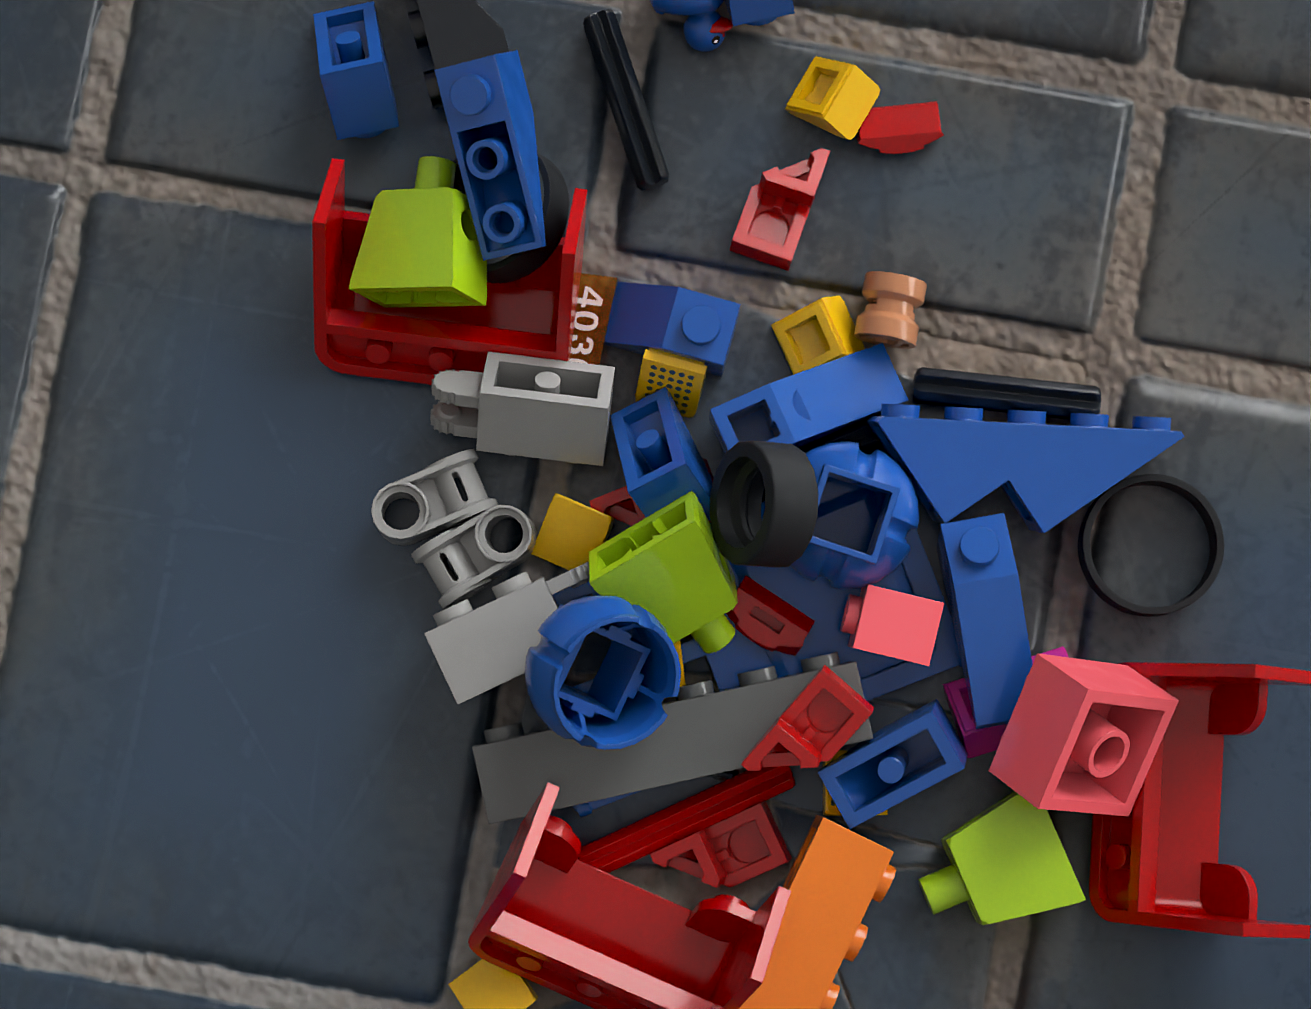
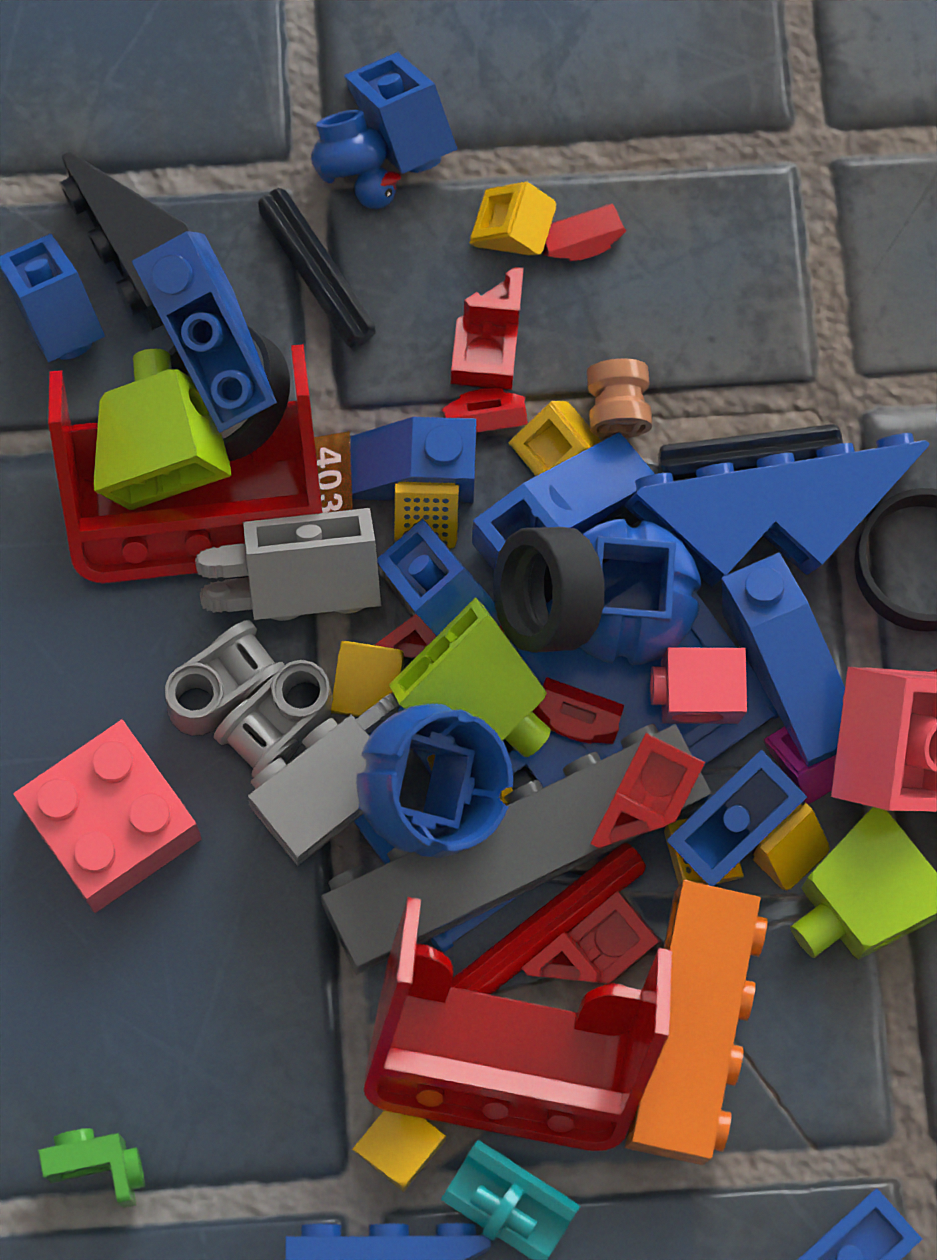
camera: 20 degrees left, 10 degrees down
(192, 929) = (81, 1154): none -> bright green bracket
(290, 610) = (108, 816): none -> coral brick
(757, 287) = (490, 408): none -> red piece
(942, 804) = (792, 848): none -> yellow slope

